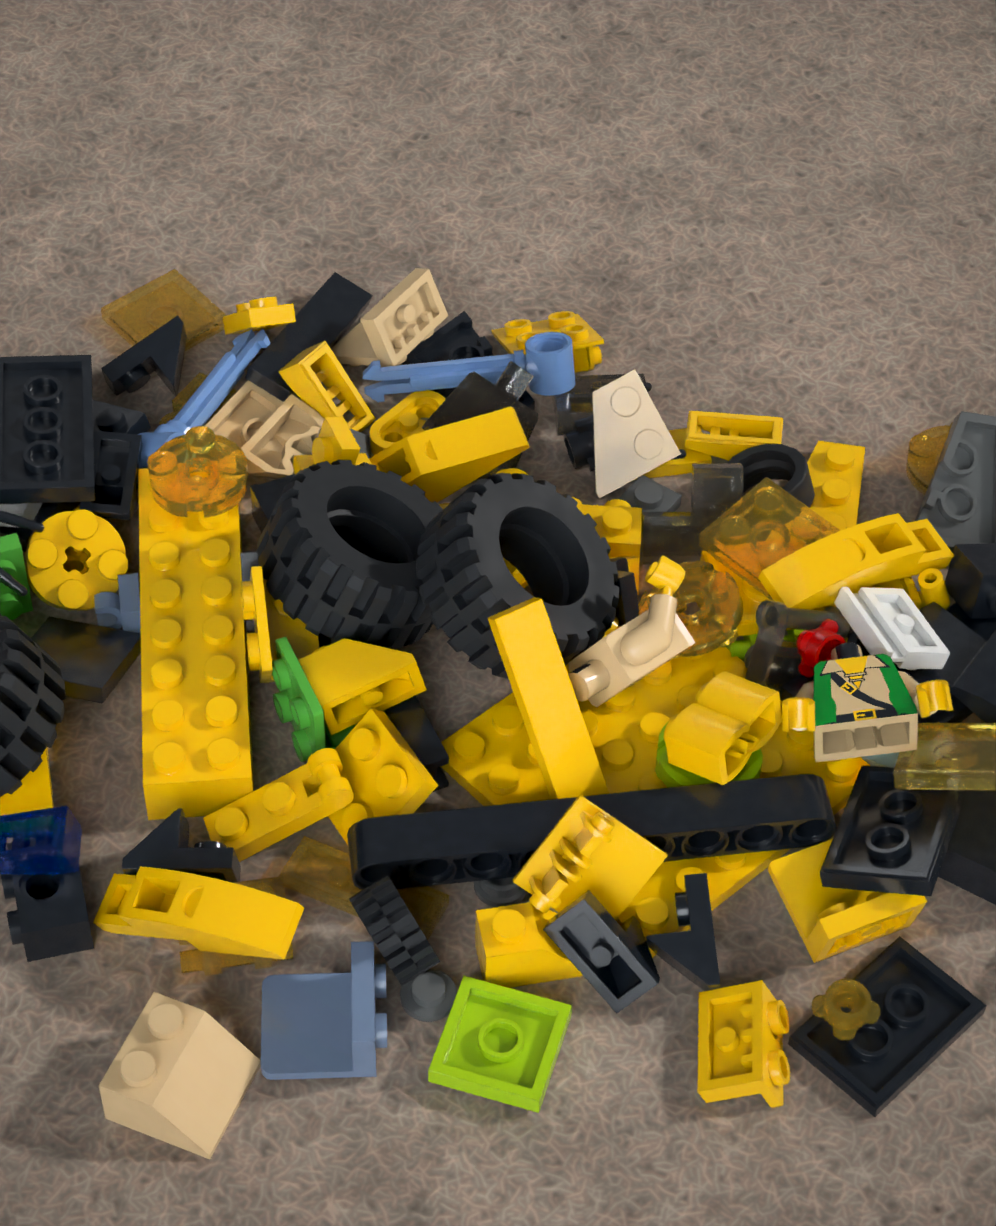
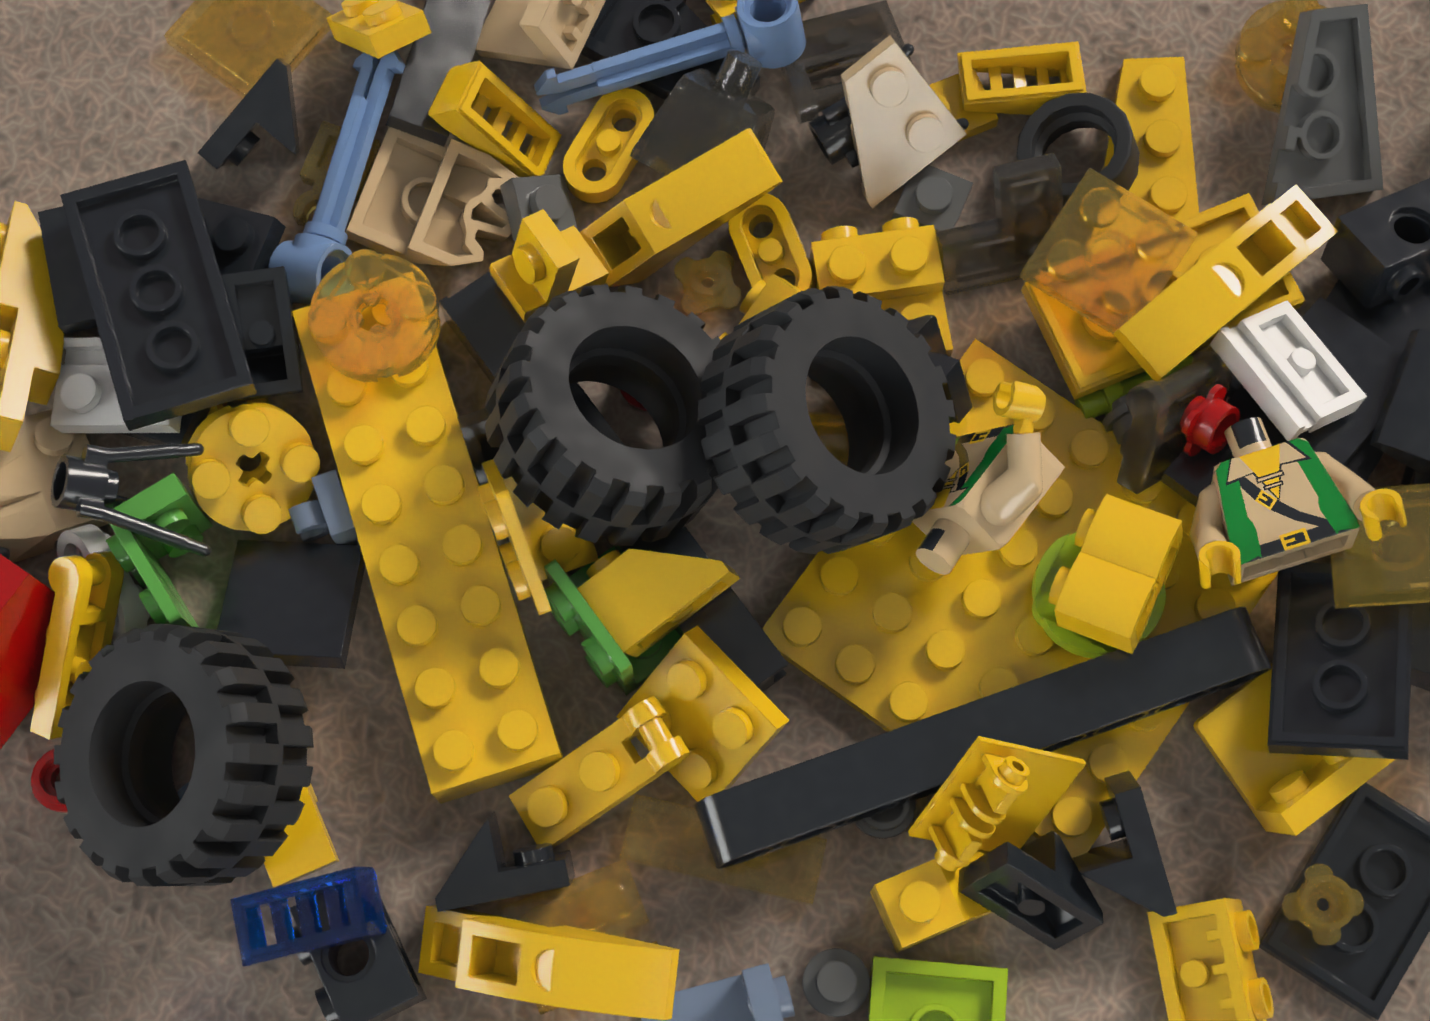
camera: 10 degrees left, 25 degrees up
(394, 930) = (785, 933): black tyre -> none
(547, 701) = (906, 602): yellow tile -> none
(719, 602) = (1051, 351): clear yellow plate -> none
(933, 588) = (1314, 279): yellow arm -> none

